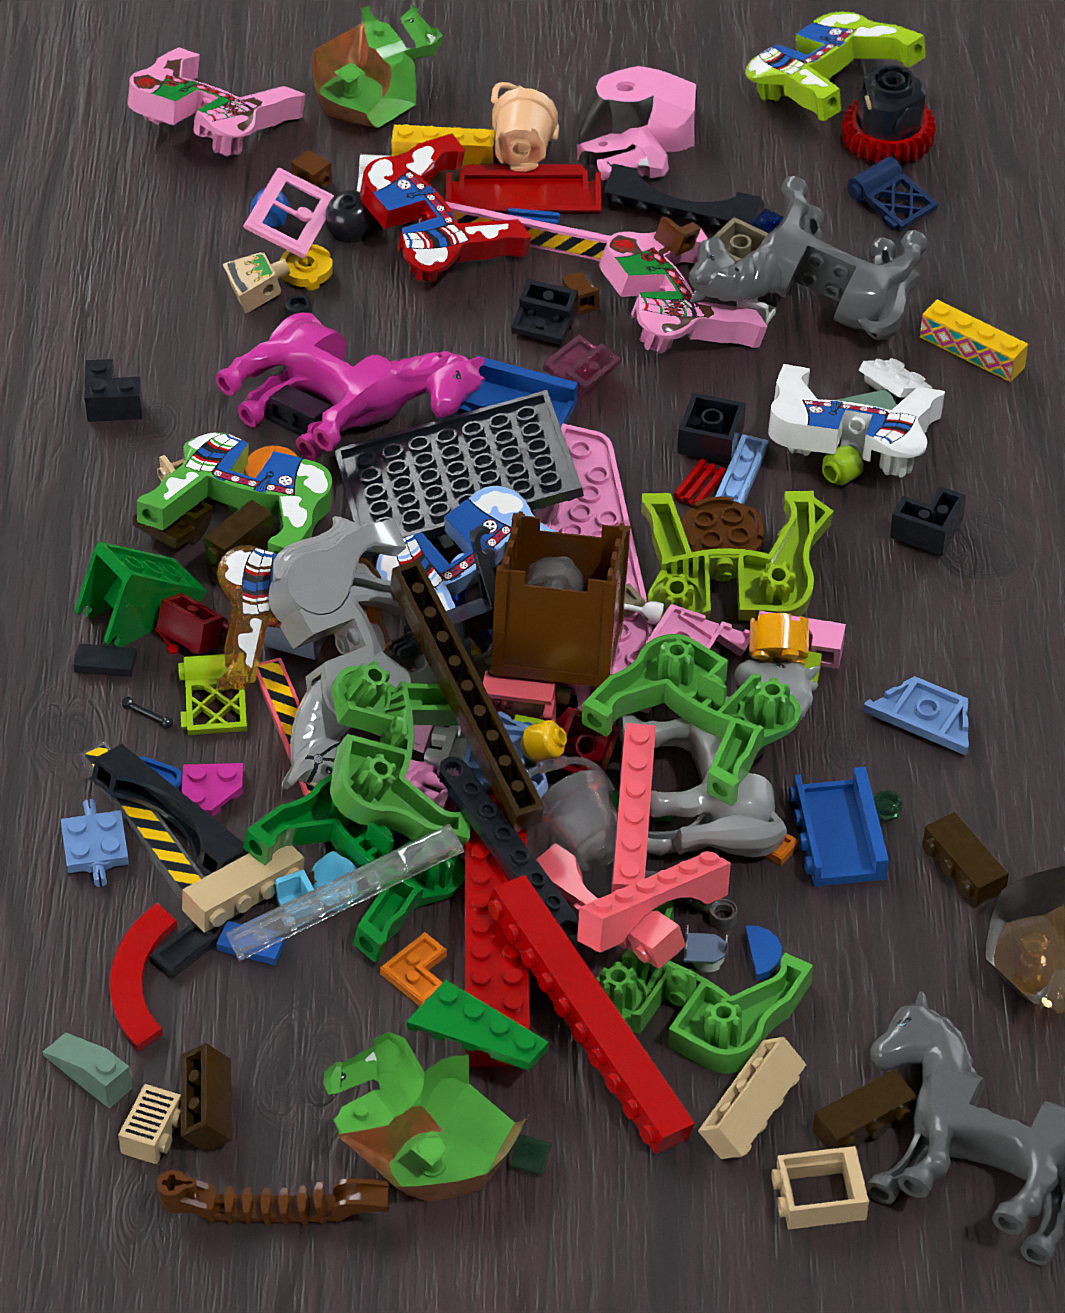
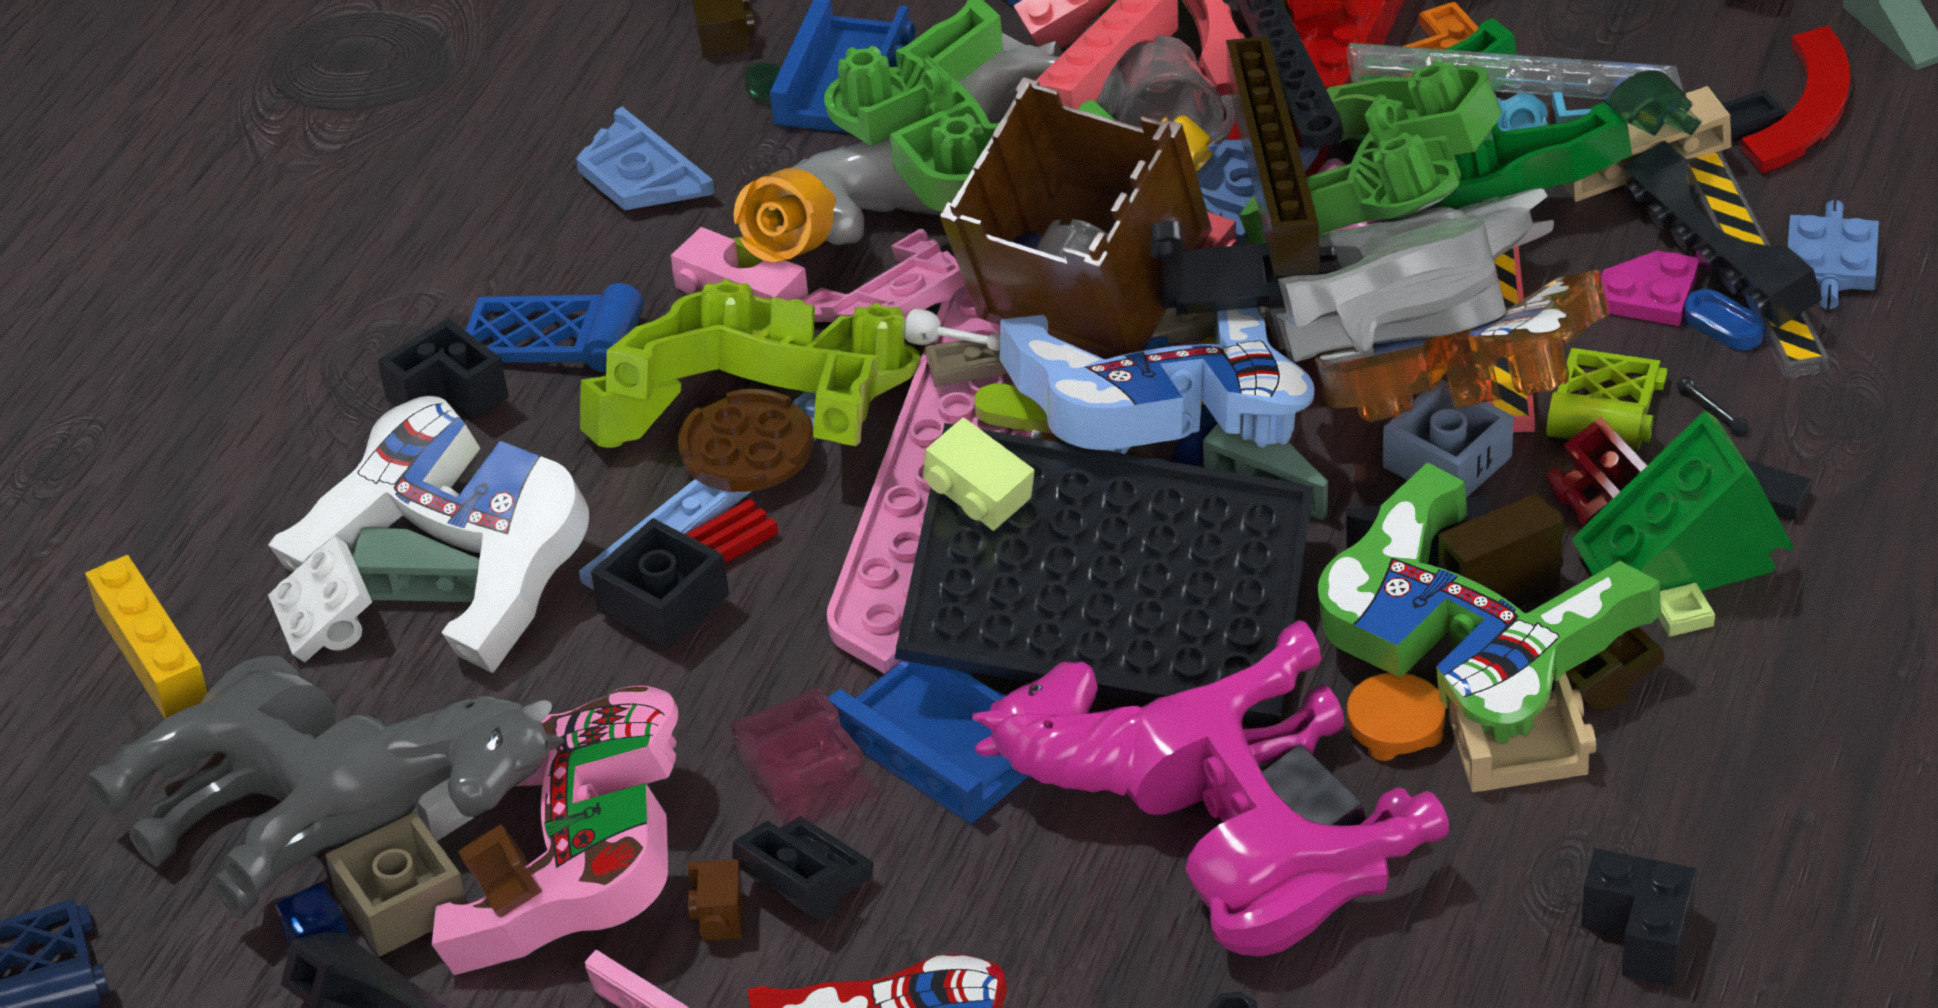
camera: 155 degrees left, 5 degrees down
(231, 844) = (1651, 101): none -> clear green brick
(543, 457) = (978, 474): none -> yellowish green brick
(862, 588) = (604, 324): none -> blue piece

